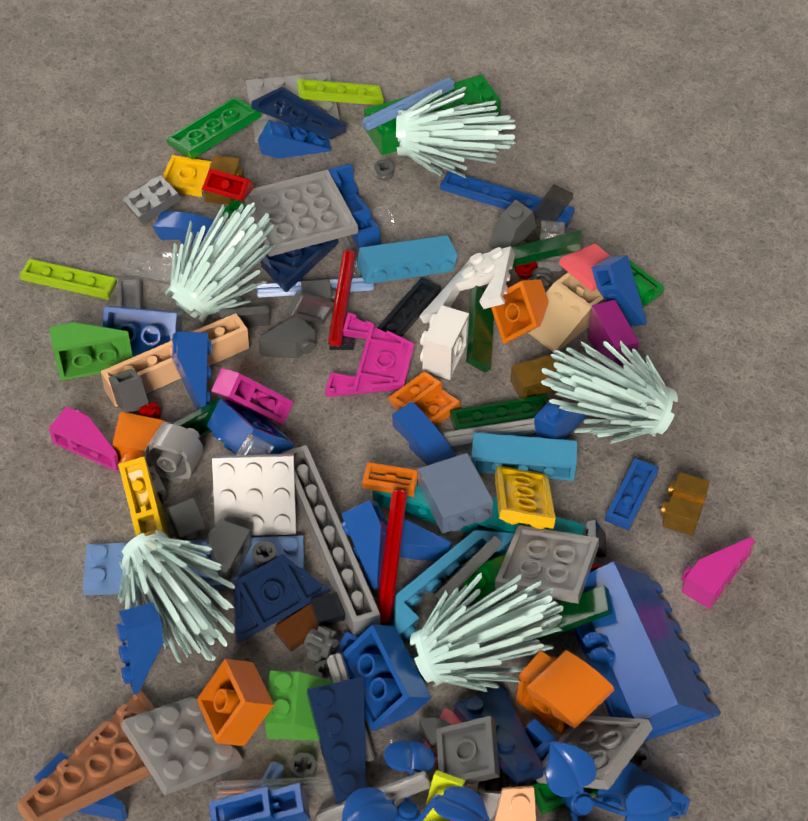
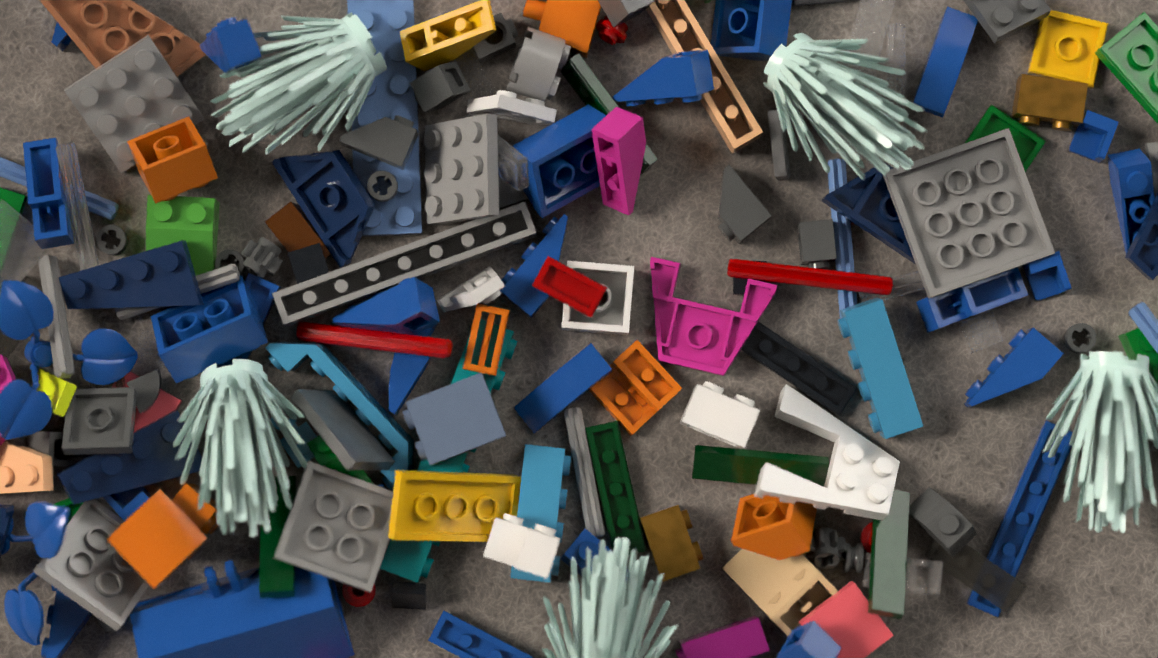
camera: 90 degrees right, 35 degrees up
(203, 465) = (509, 108): none -> white wing
(227, 185) = (1016, 108): red slope -> none
(251, 158) = (1093, 136): none -> blue panel
(310, 307) = (777, 233): flat silver tile -> none
(335, 456) = (519, 283): none -> blue slope
(348, 485) = (479, 288): none -> white wing
(349, 421) = (569, 287): none -> red tile
(357, 416) = (615, 307): none -> white brick
(404, 195) = (1024, 364): none -> blue slope
(553, 442) = (522, 546): none -> white brick

